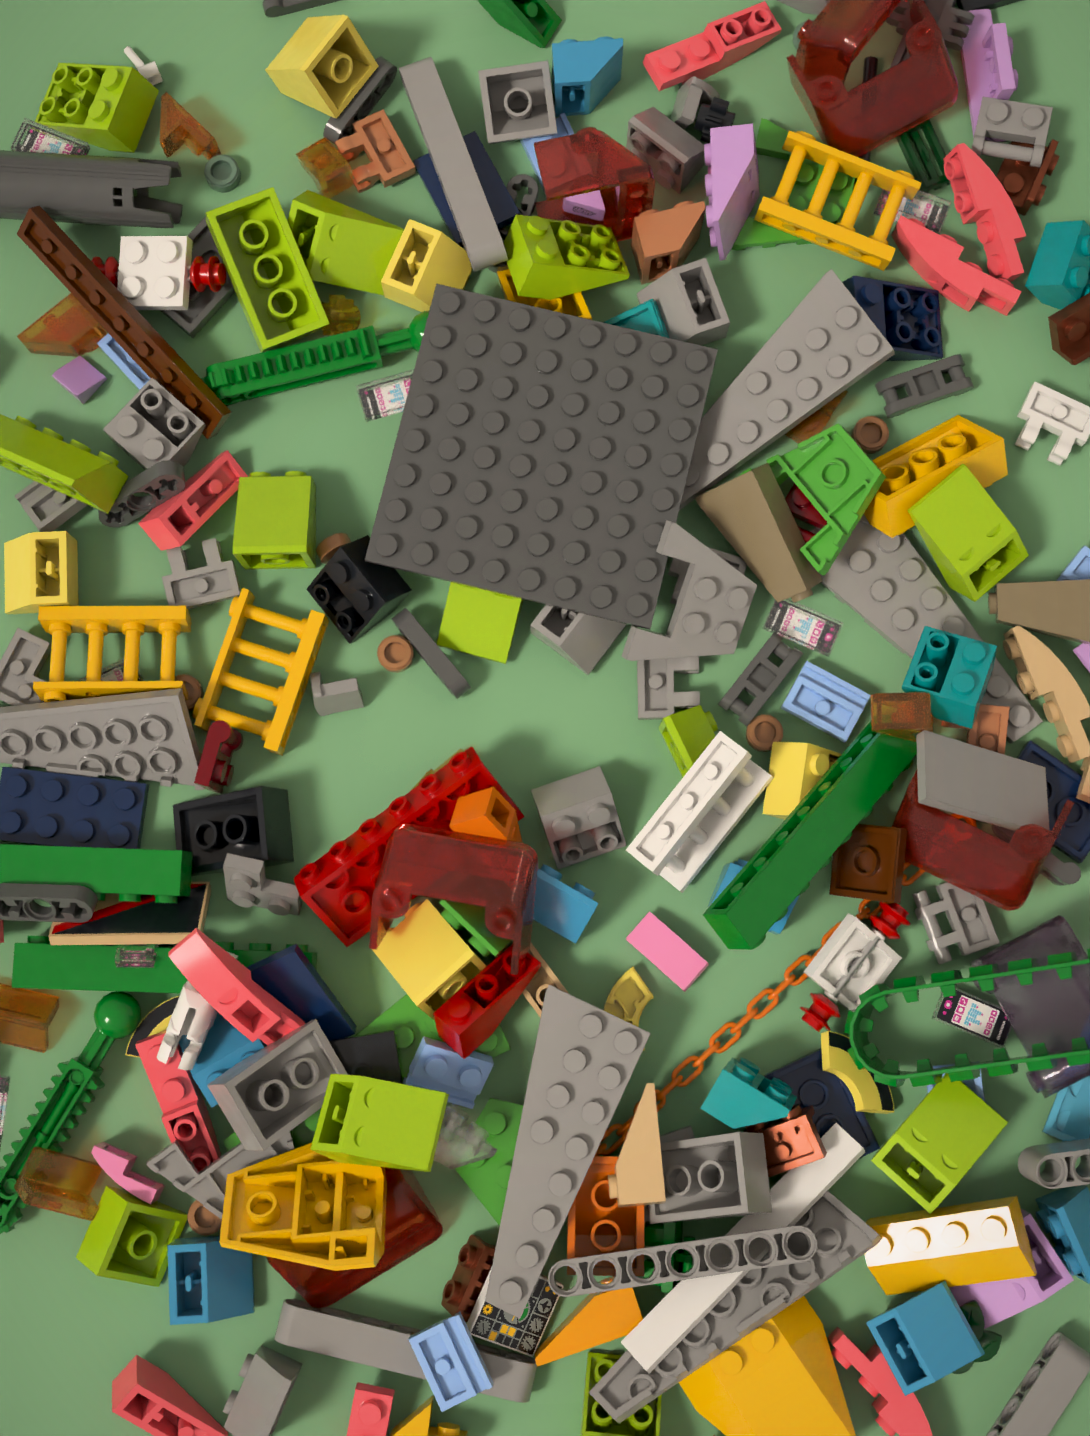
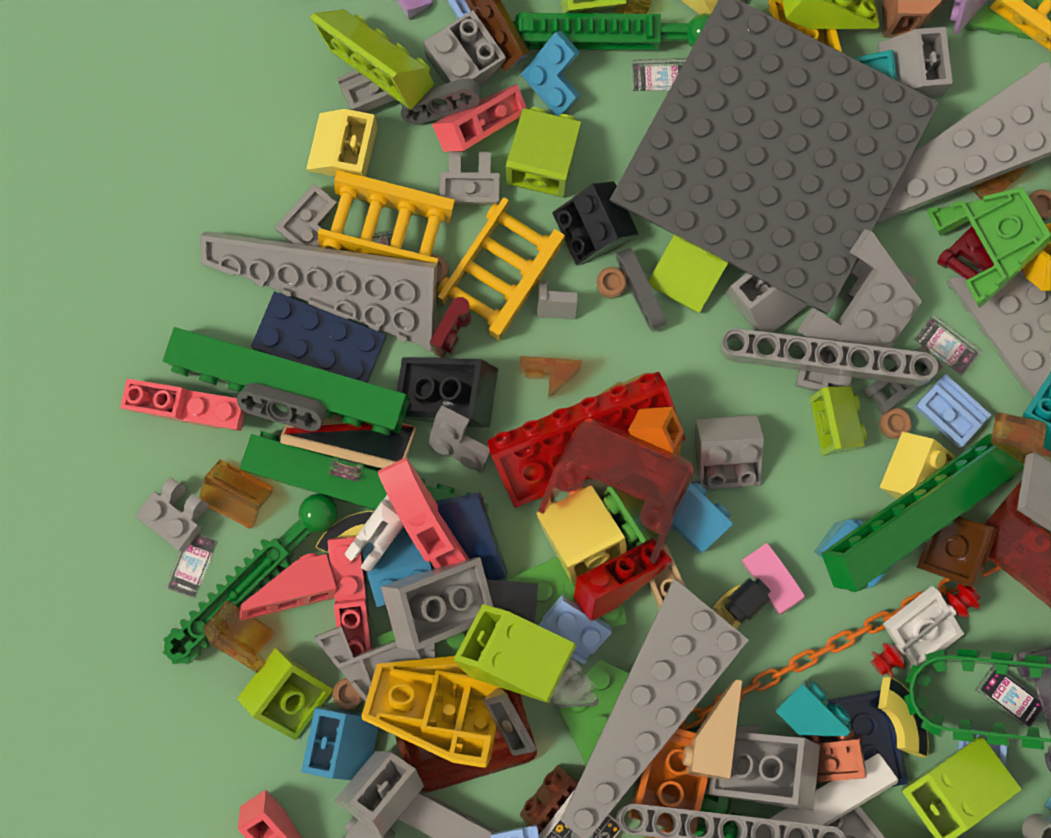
camera: 10 degrees right, 0 degrees up
(112, 1107) = (300, 584): none -> coral slope
(118, 1166) = (289, 634): bright pink slope -> none
(258, 428) = (547, 76): none -> dark azure plate
(268, 1323) = (380, 791): none -> light grey slope
(330, 545) = (581, 182): medium nougat tile -> none
(358, 774) = (559, 370): none -> clear orange slope
(395, 1204) = (509, 722): none -> flat silver slope
(641, 985) = (748, 600): none -> black brick
(681, 685) = (842, 351): none -> light grey beam
(700, 812) = (832, 472): white fence -> none
(763, 532) = (936, 259): dark tan slope -> none
(967, 917) = (1025, 616): light grey plate -> none

